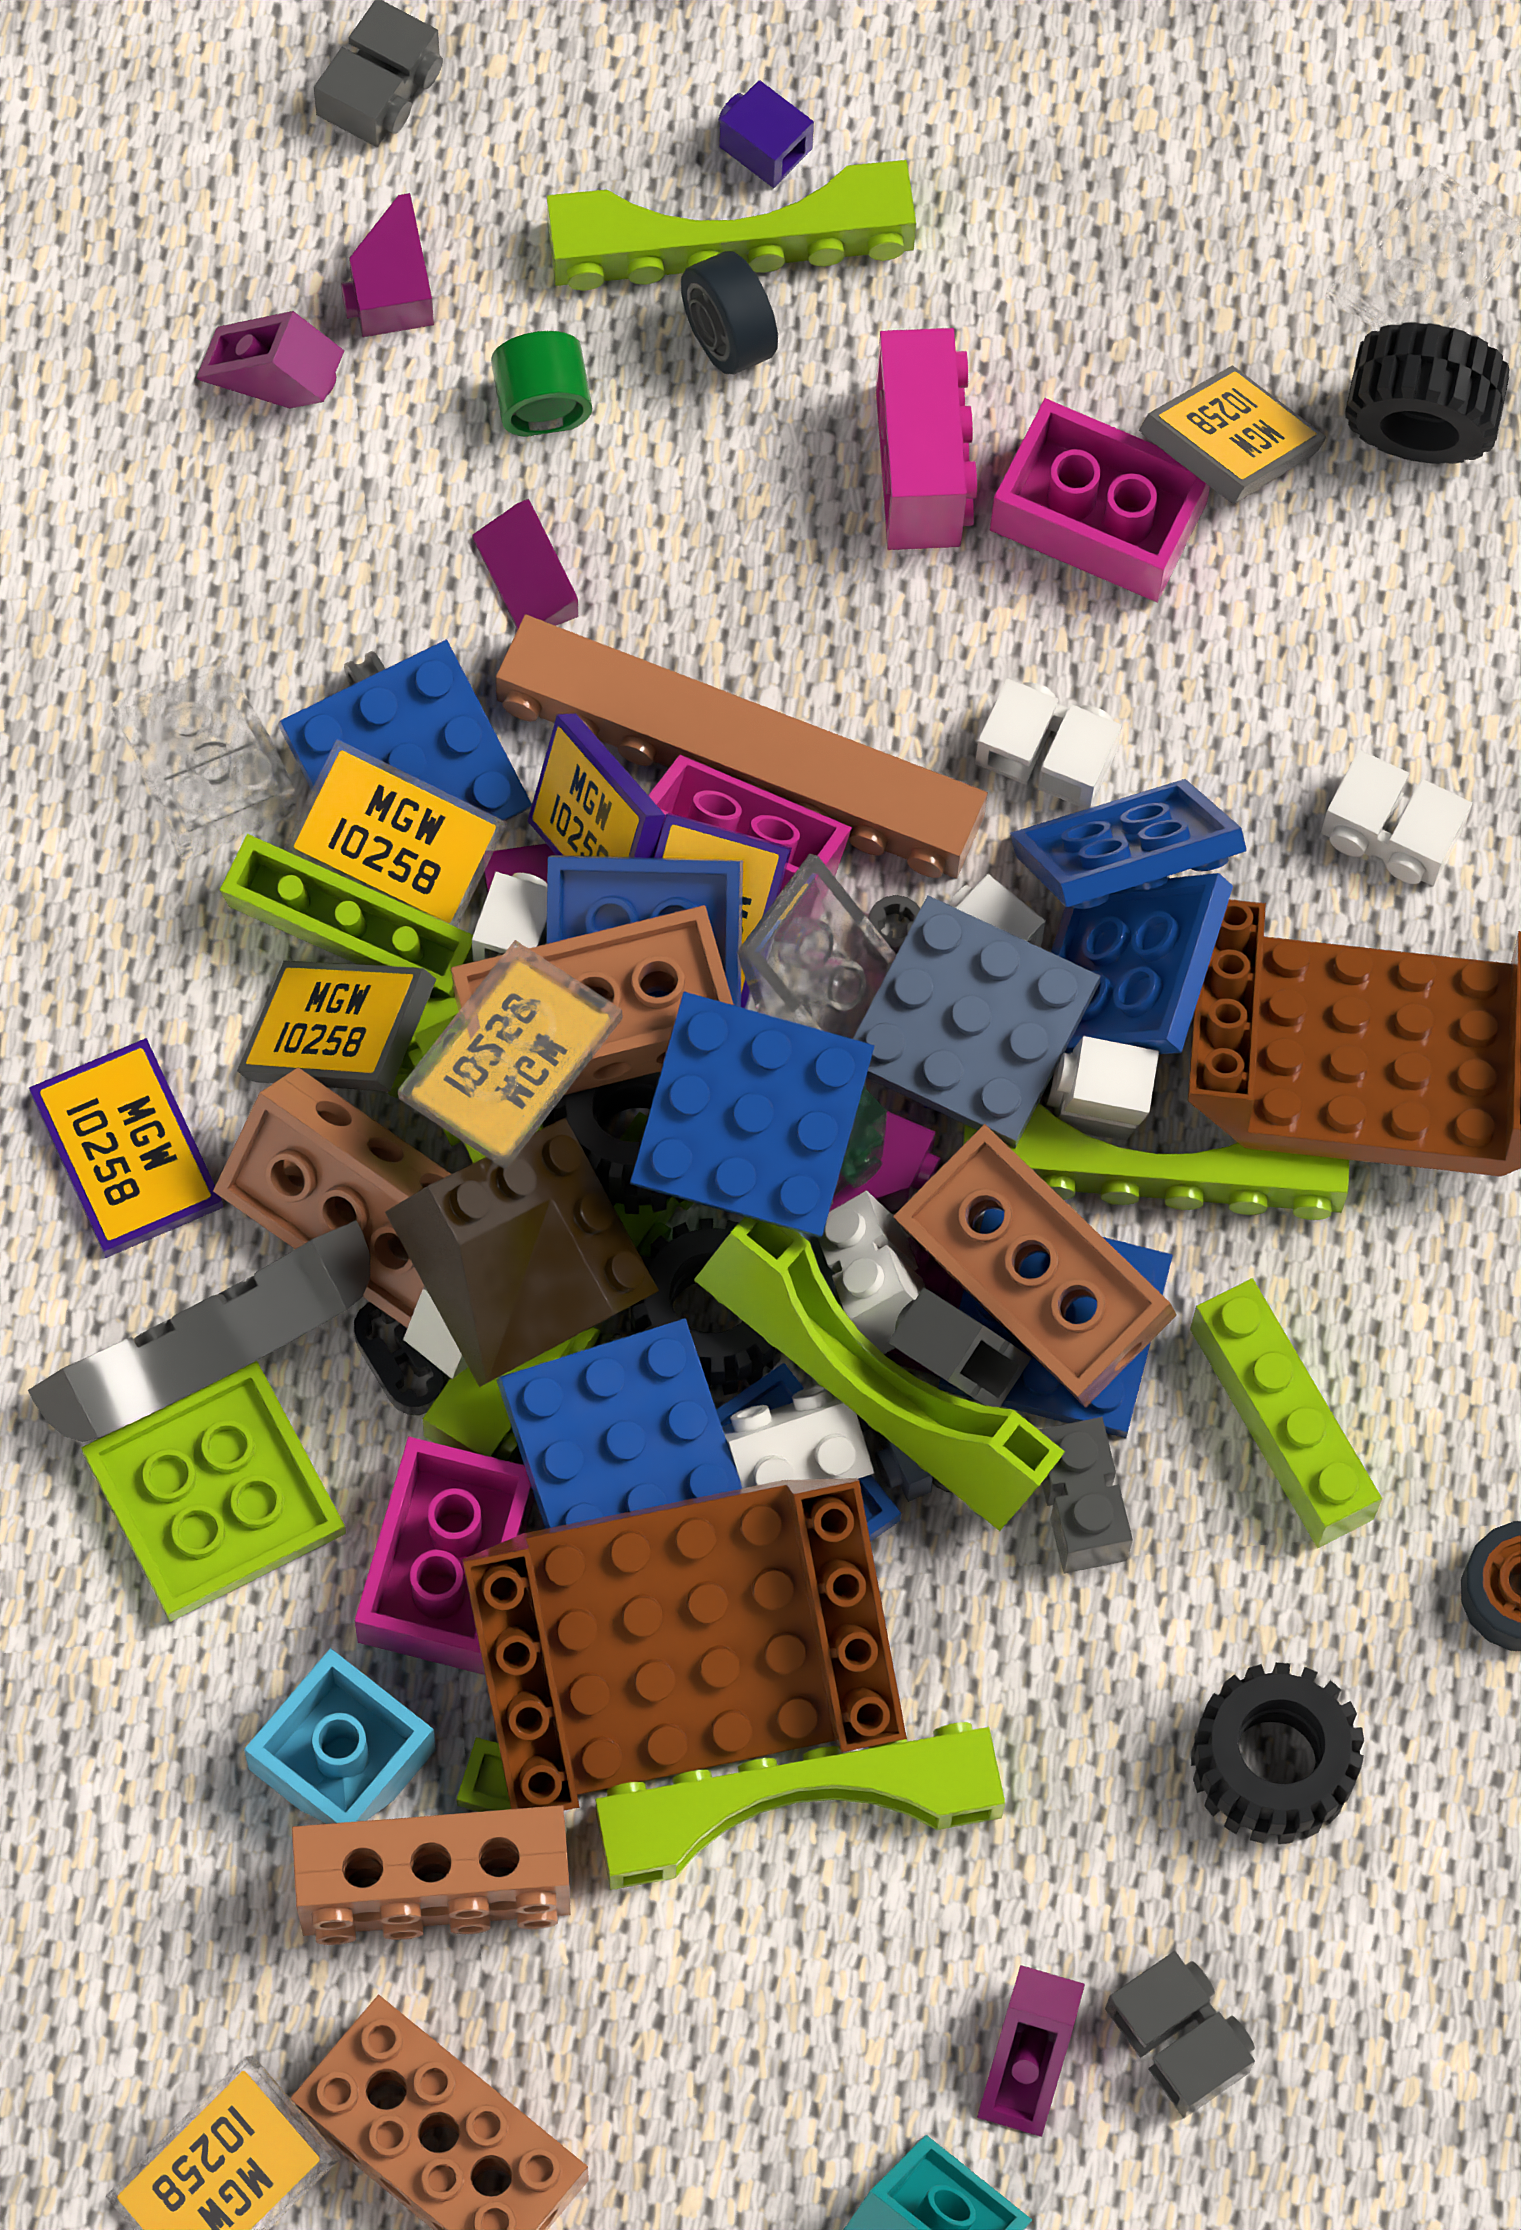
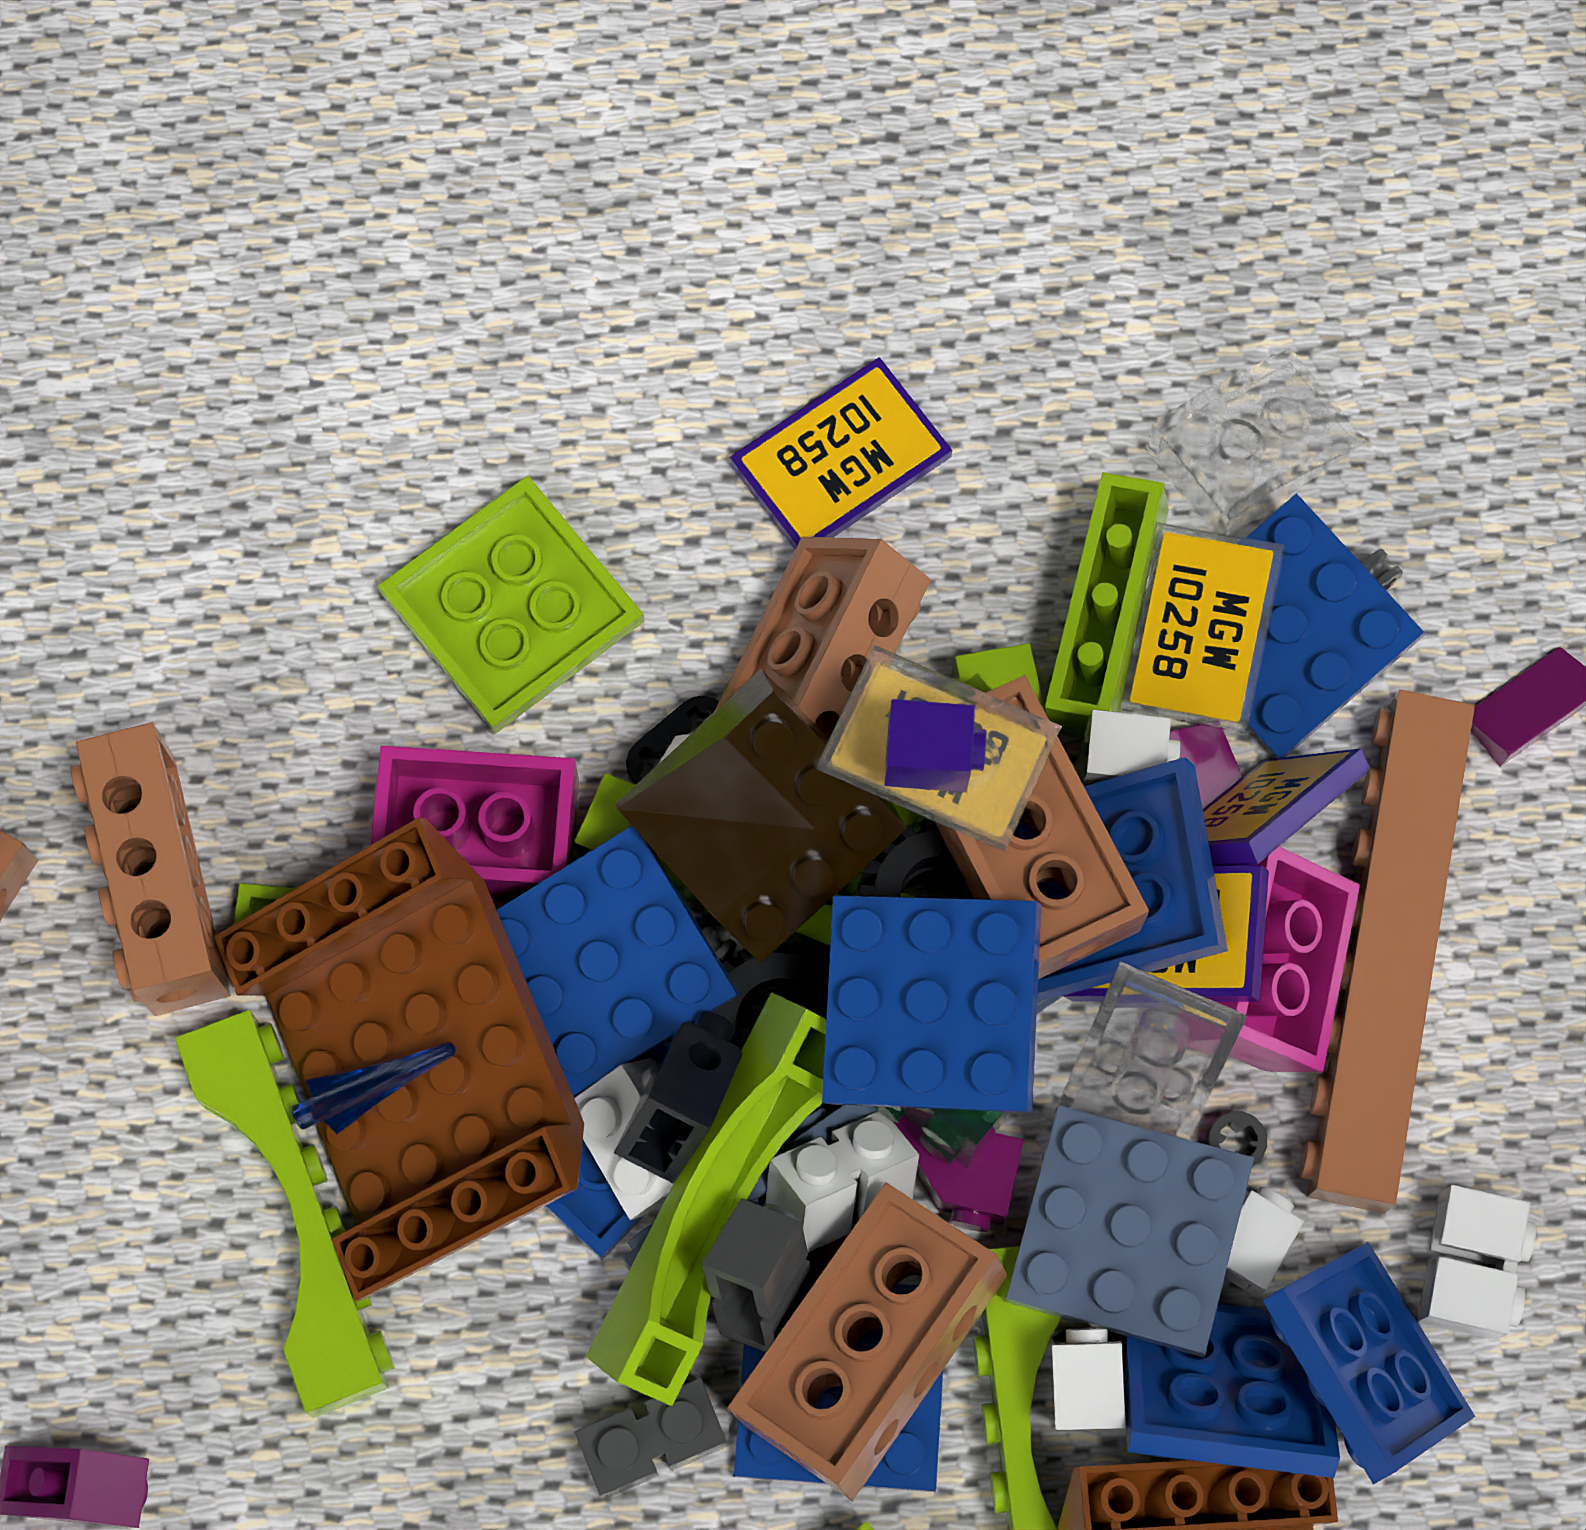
camera: 80 degrees right, 5 degrees up
(208, 1338) = (646, 560): dark grey brick -> none
(338, 1024) = (991, 613): tile -> none
(340, 1745) = (267, 763): medium azure slope -> none
(519, 1048) = (932, 745): none -> dark purple brick
(704, 1709) = (348, 1095): none -> clear blue piece
(781, 1378) = (681, 1097): none -> black torso

